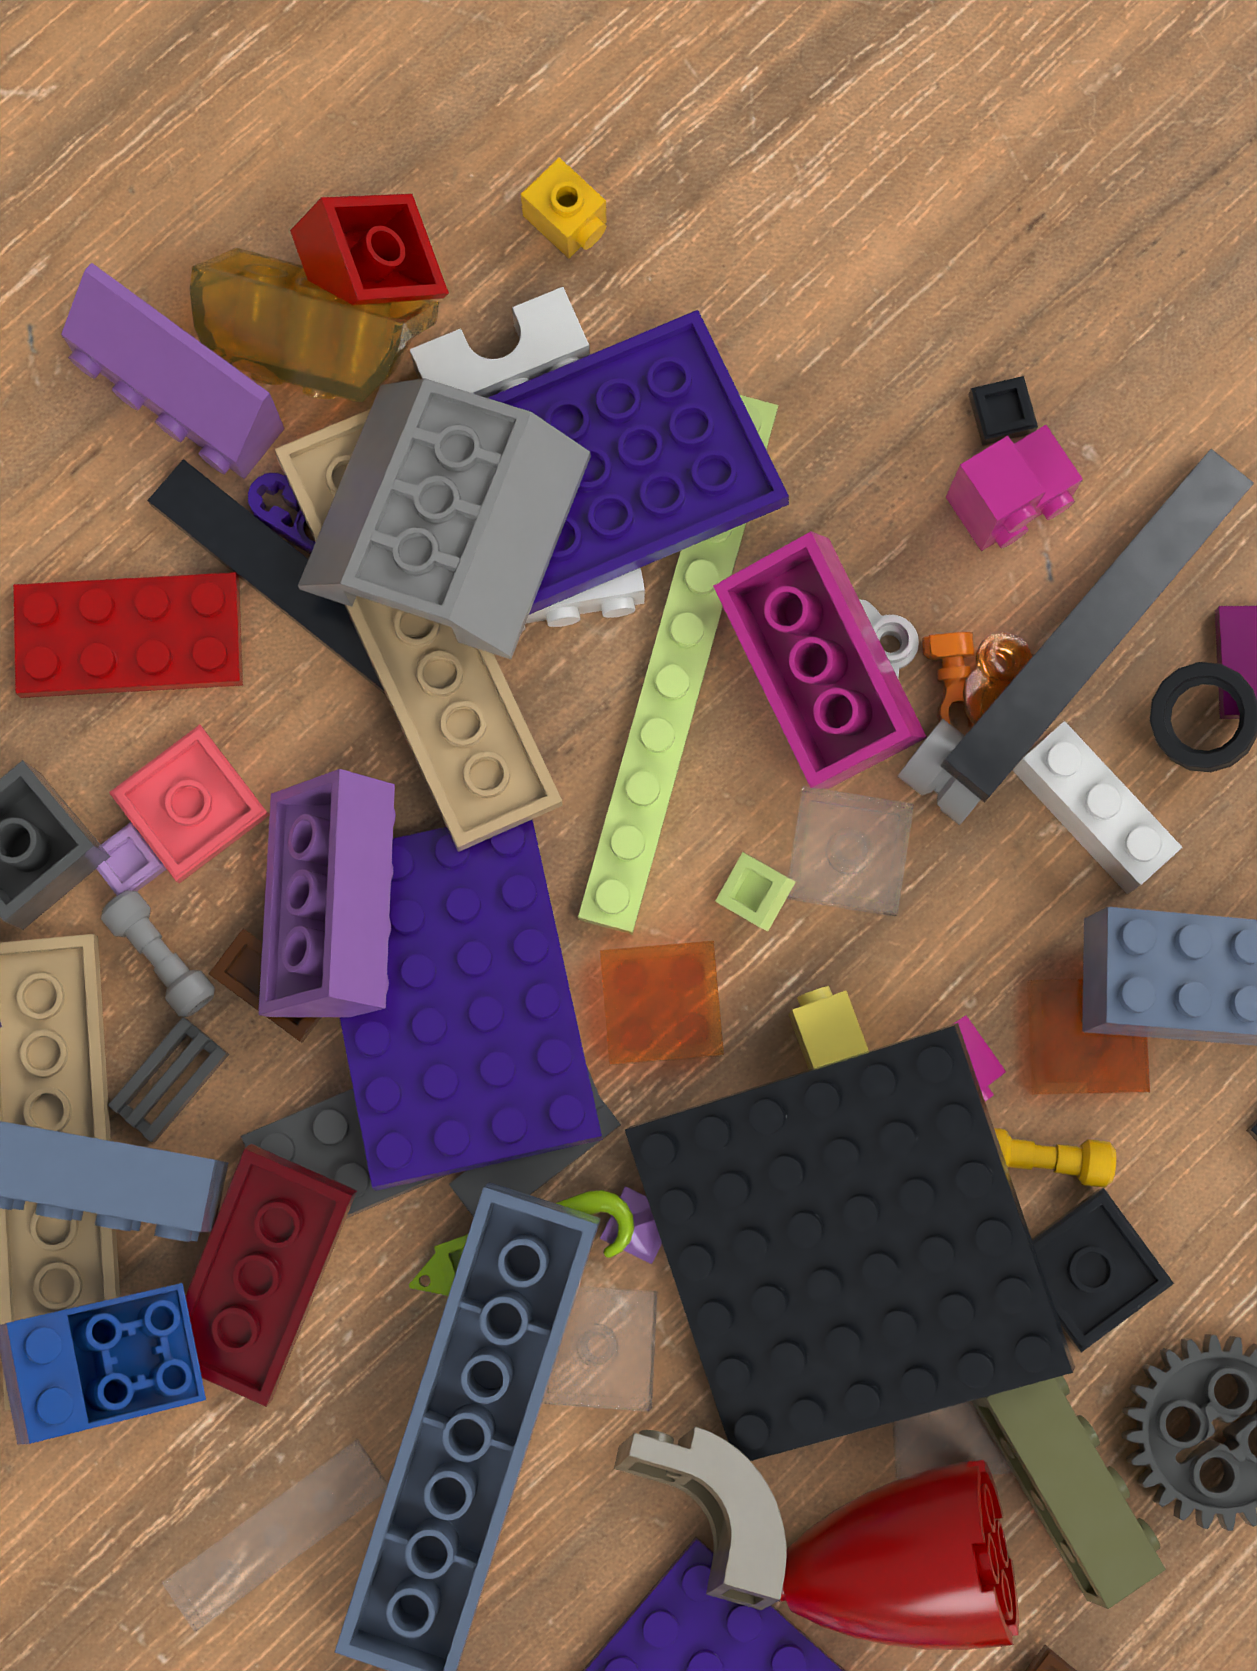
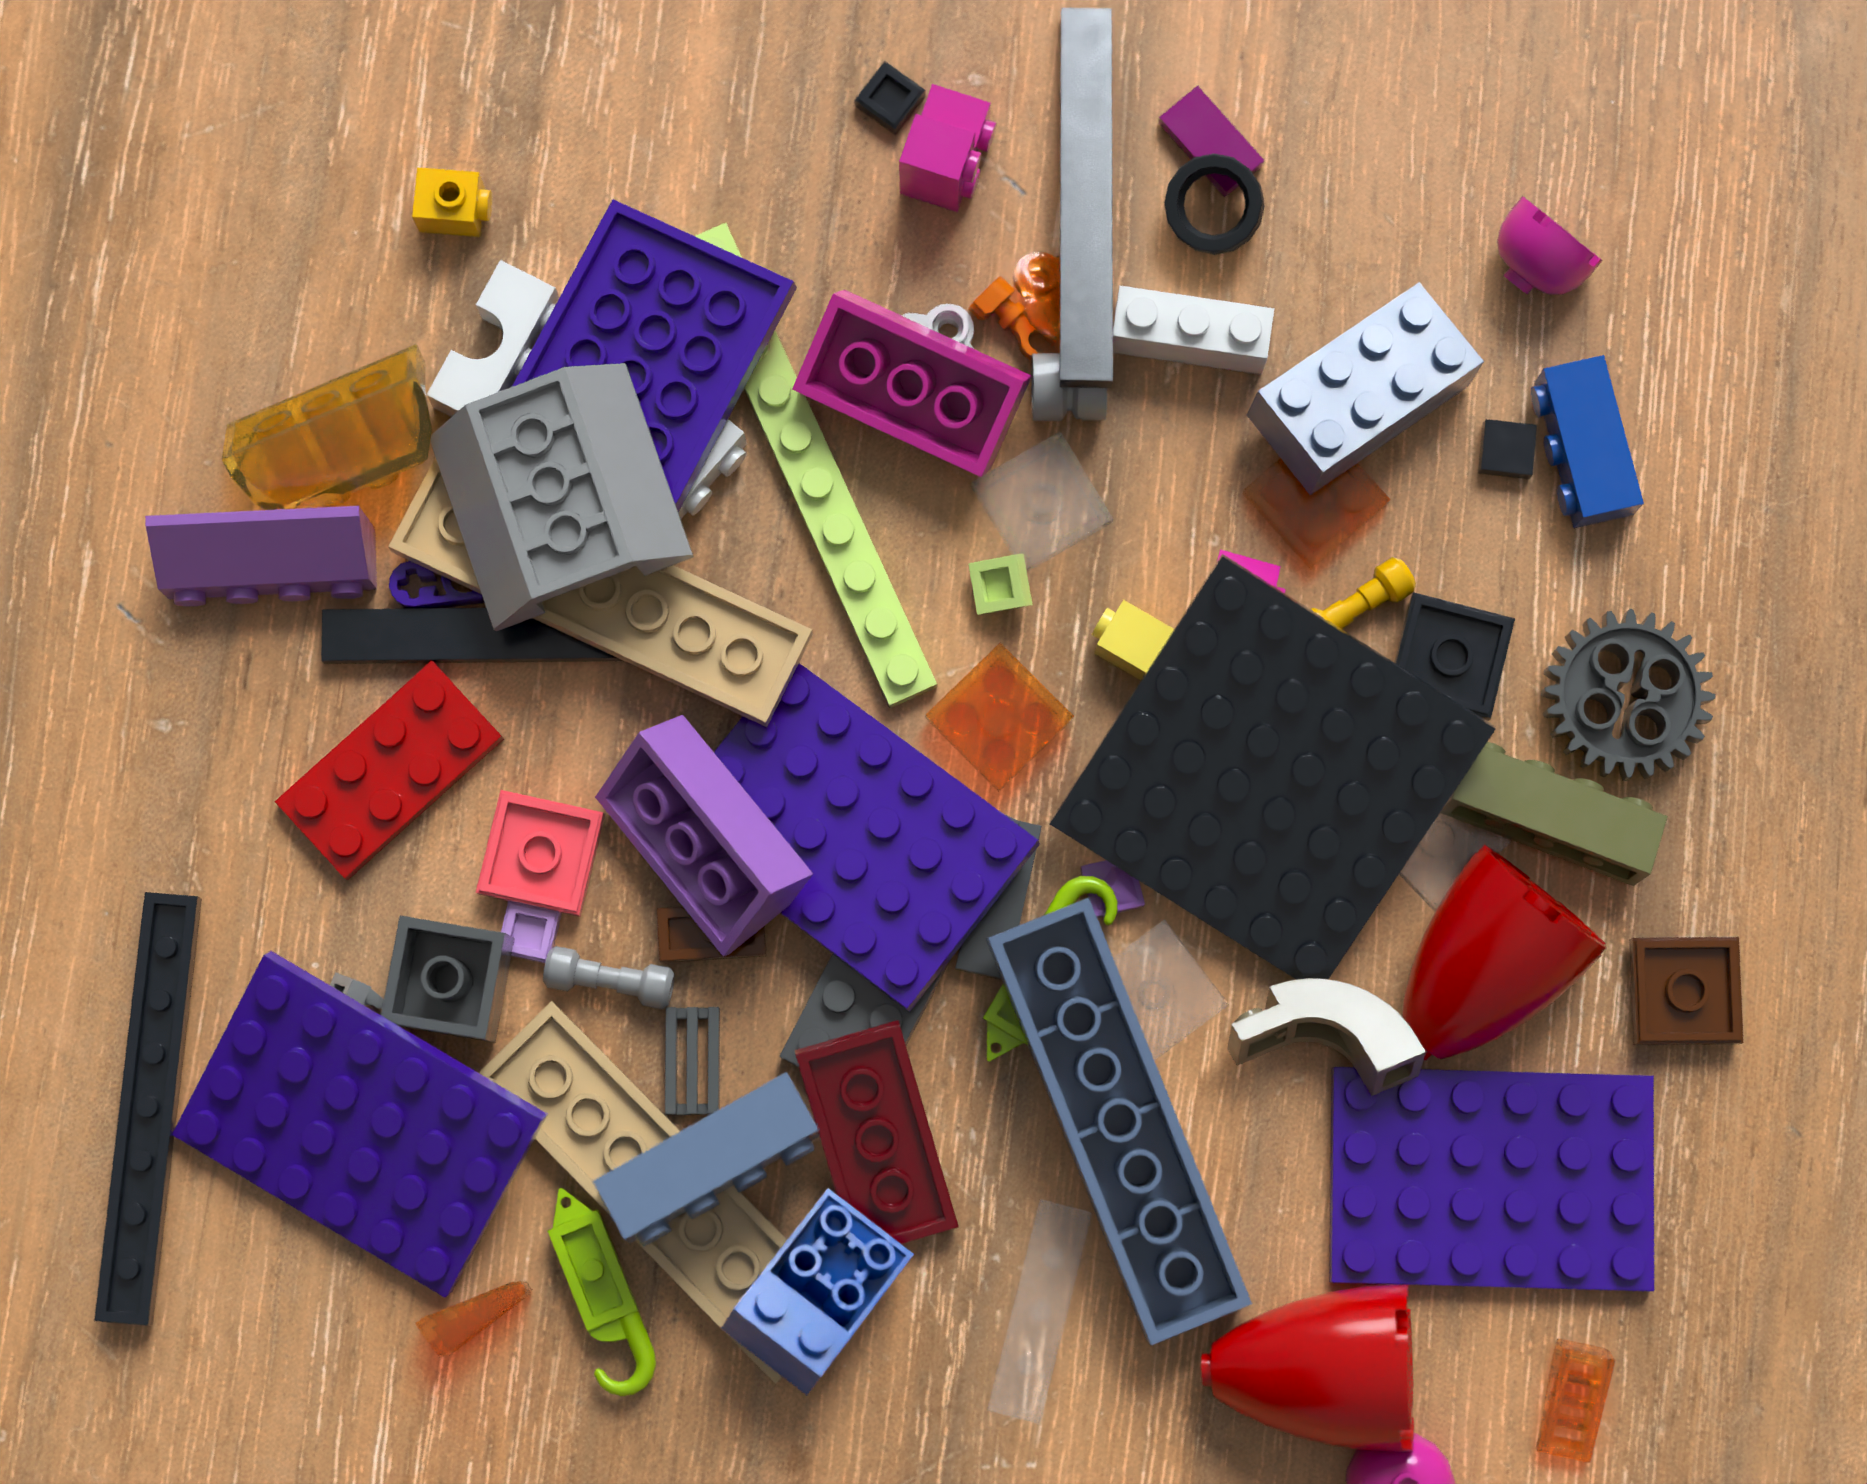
camera: 40 degrees left, 0 degrees up
(369, 250) = (337, 346): red slope -> none

